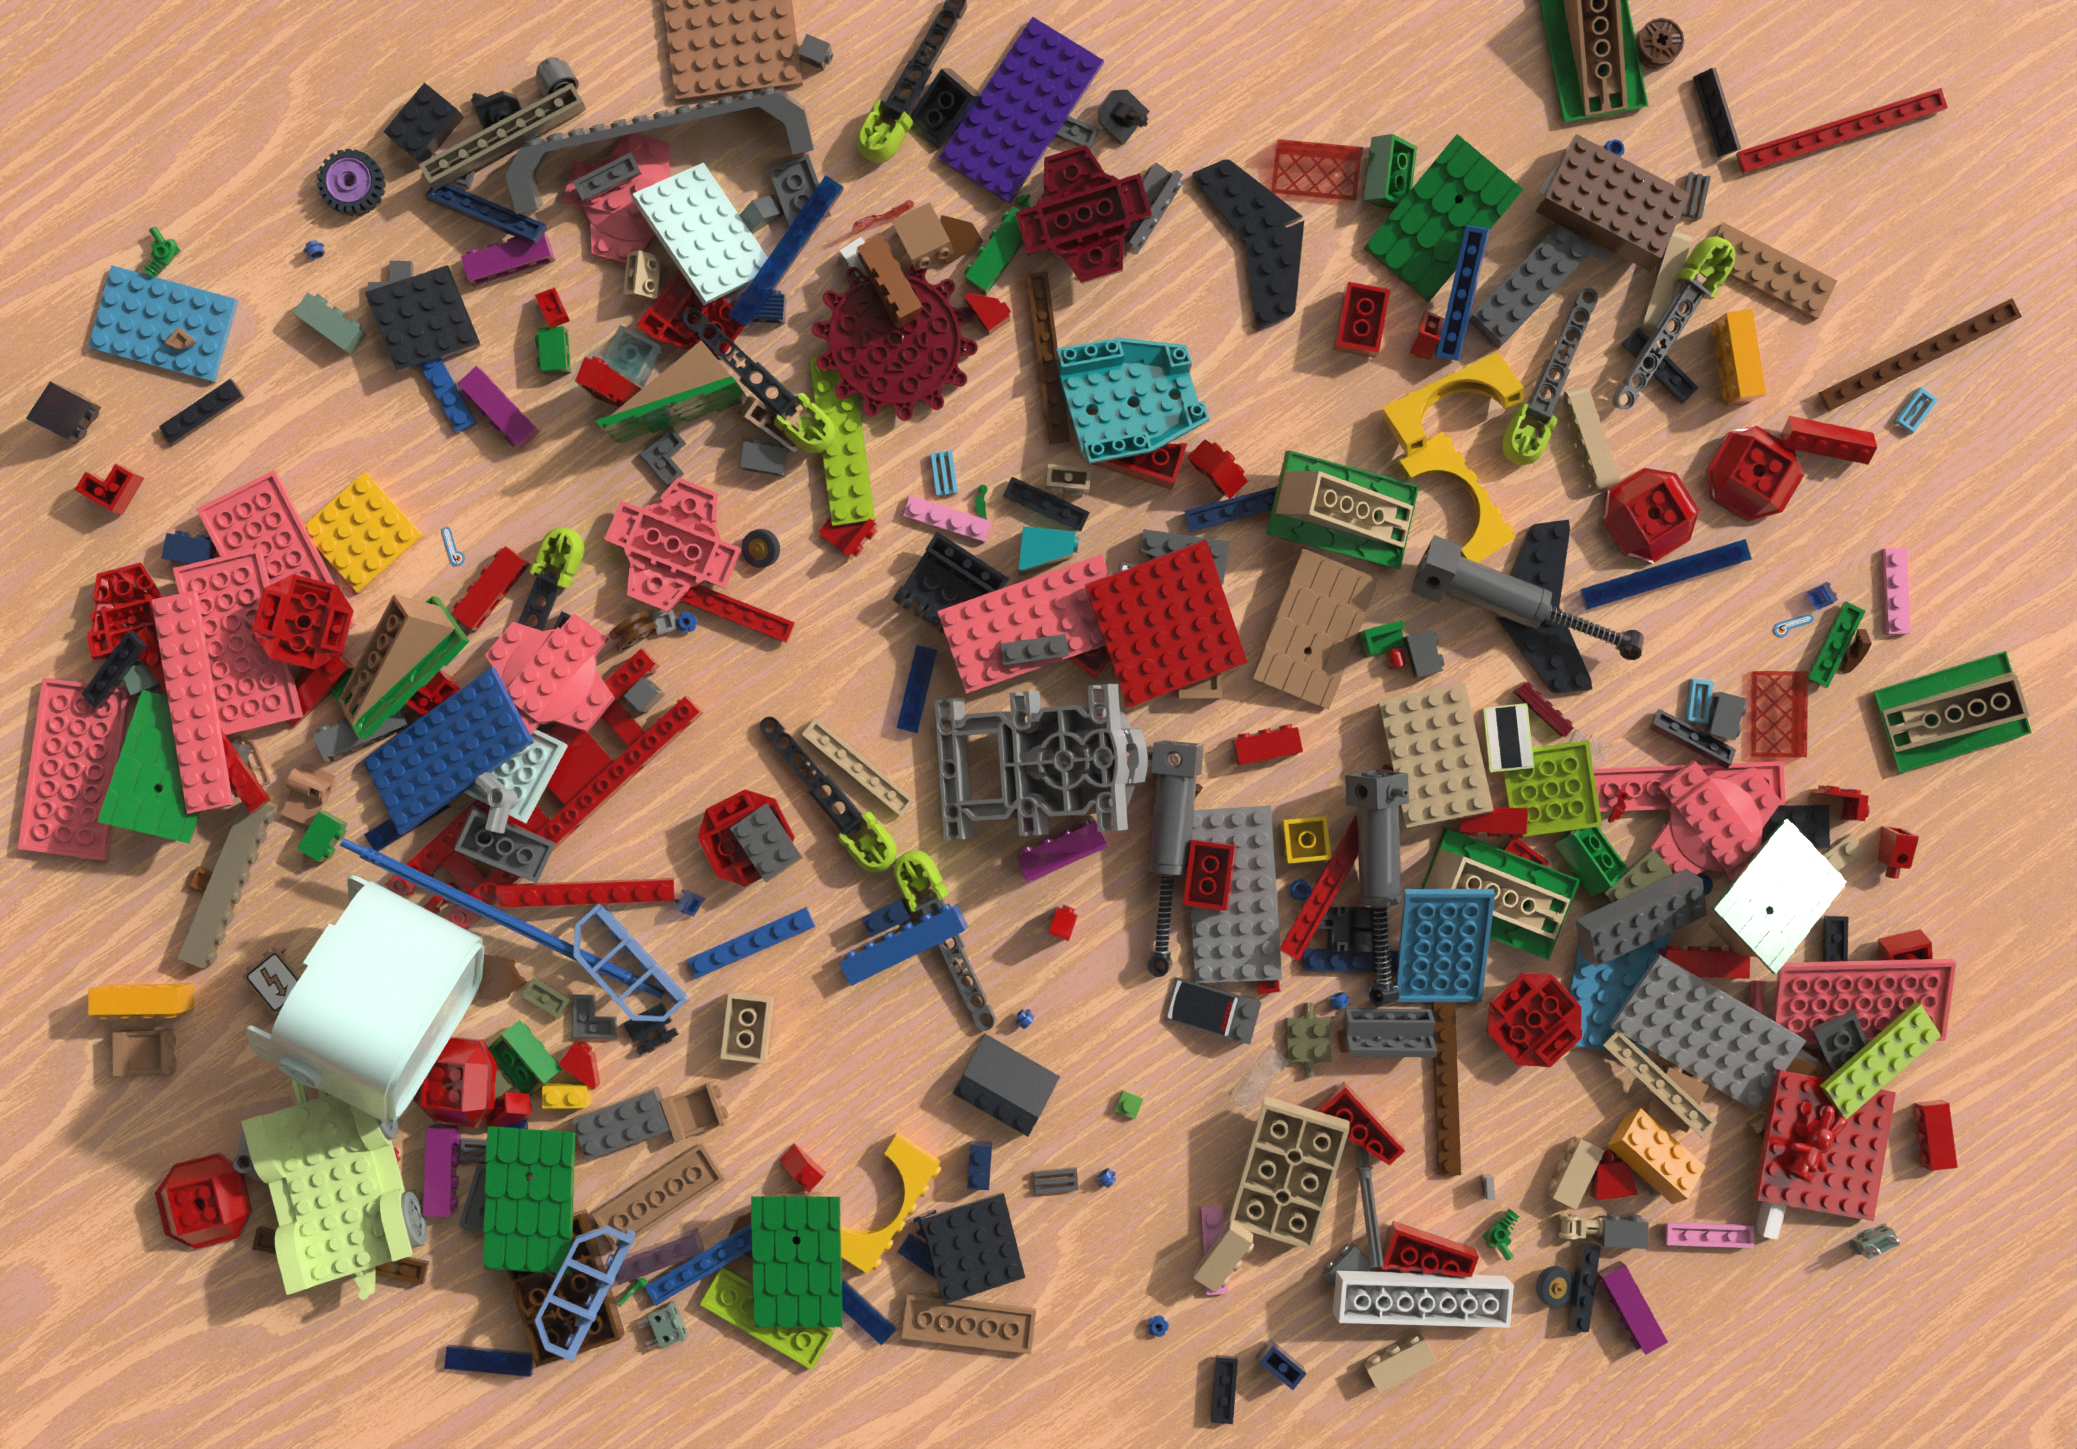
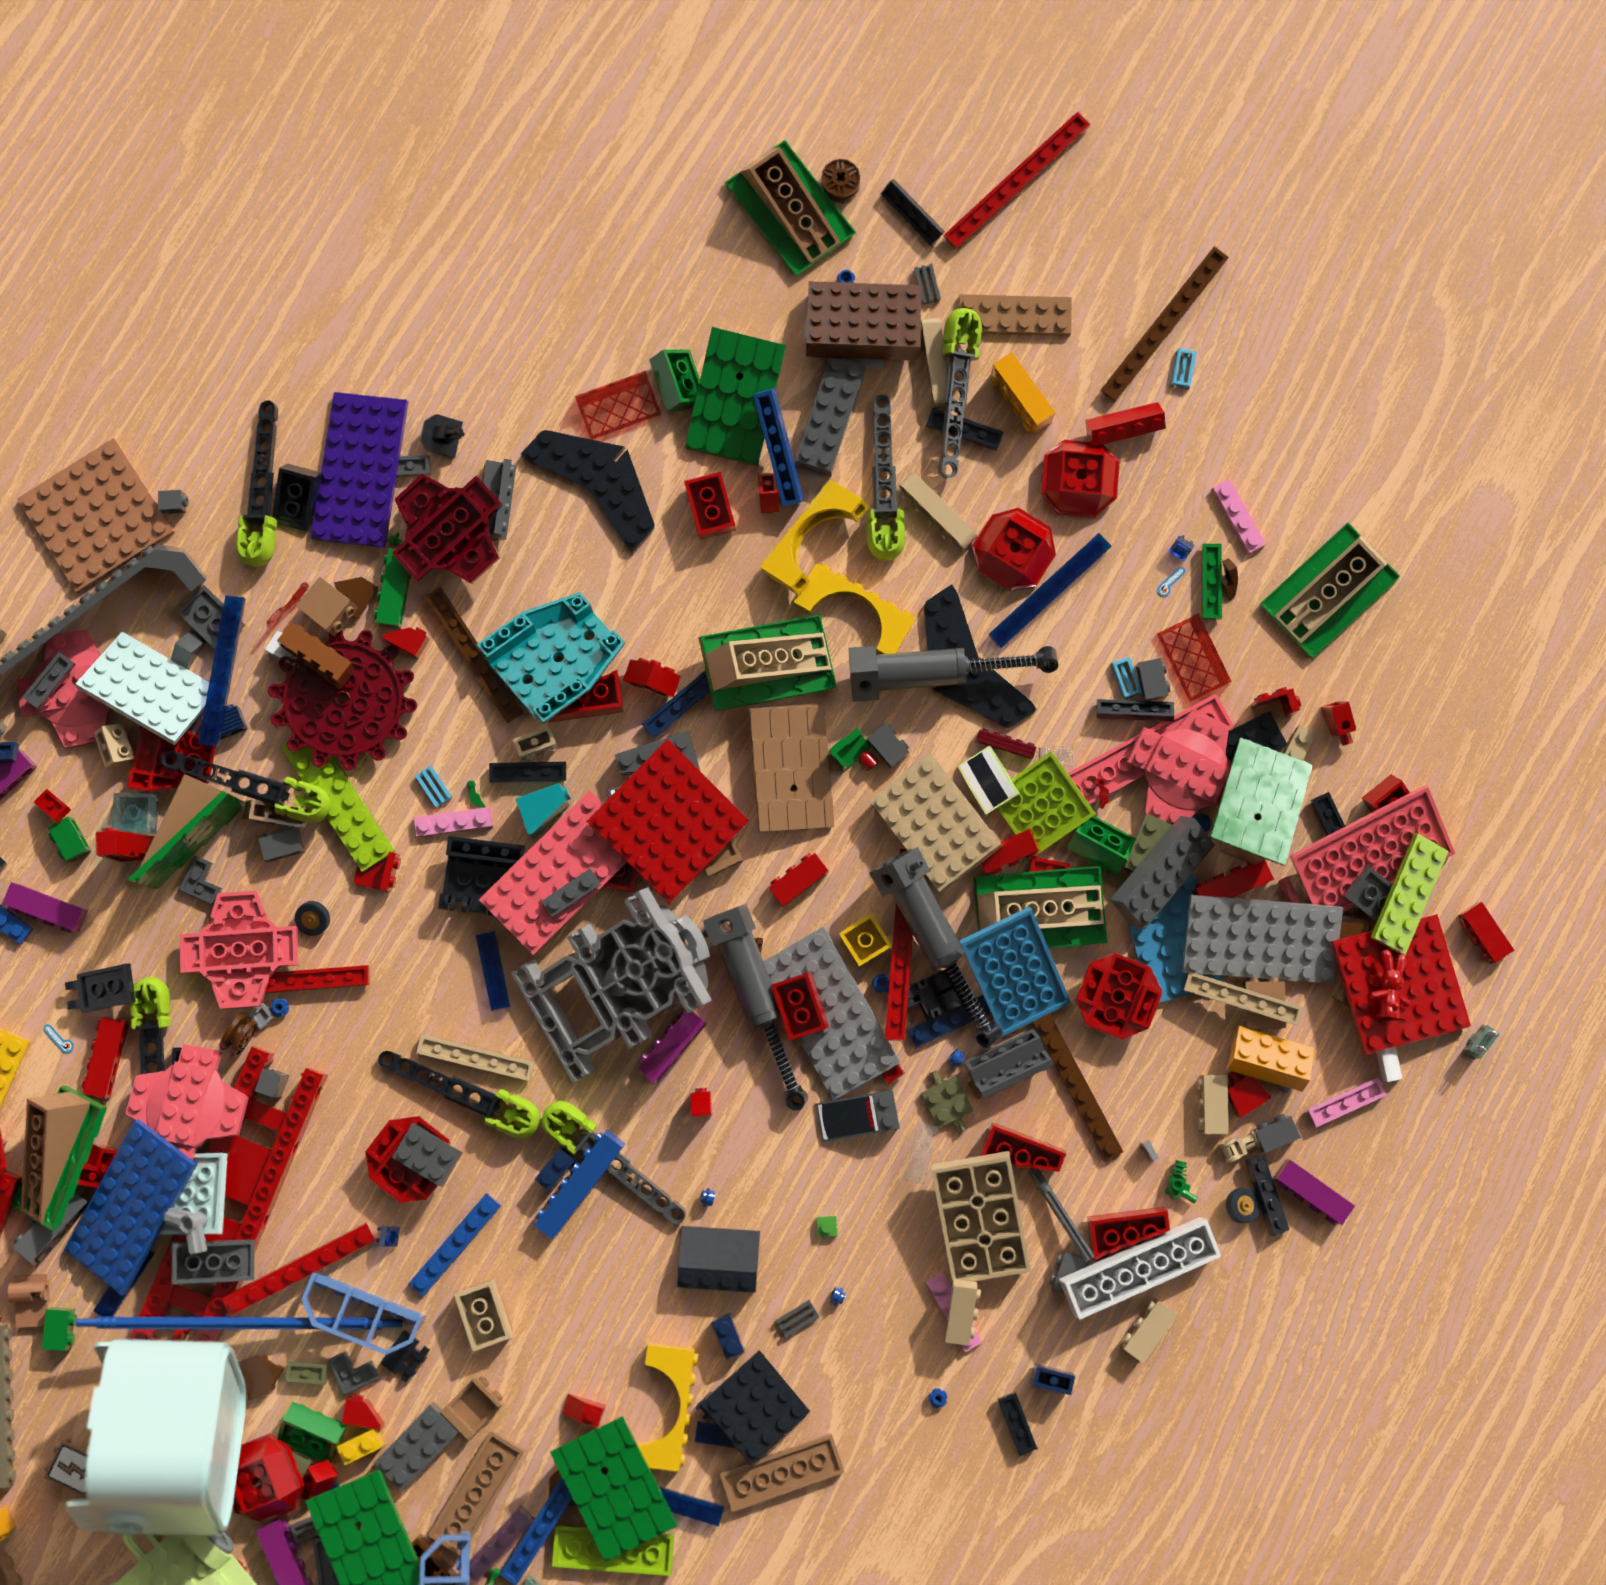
camera: 20 degrees left, 5 degrees down
(519, 518) = (102, 988): none -> black tile

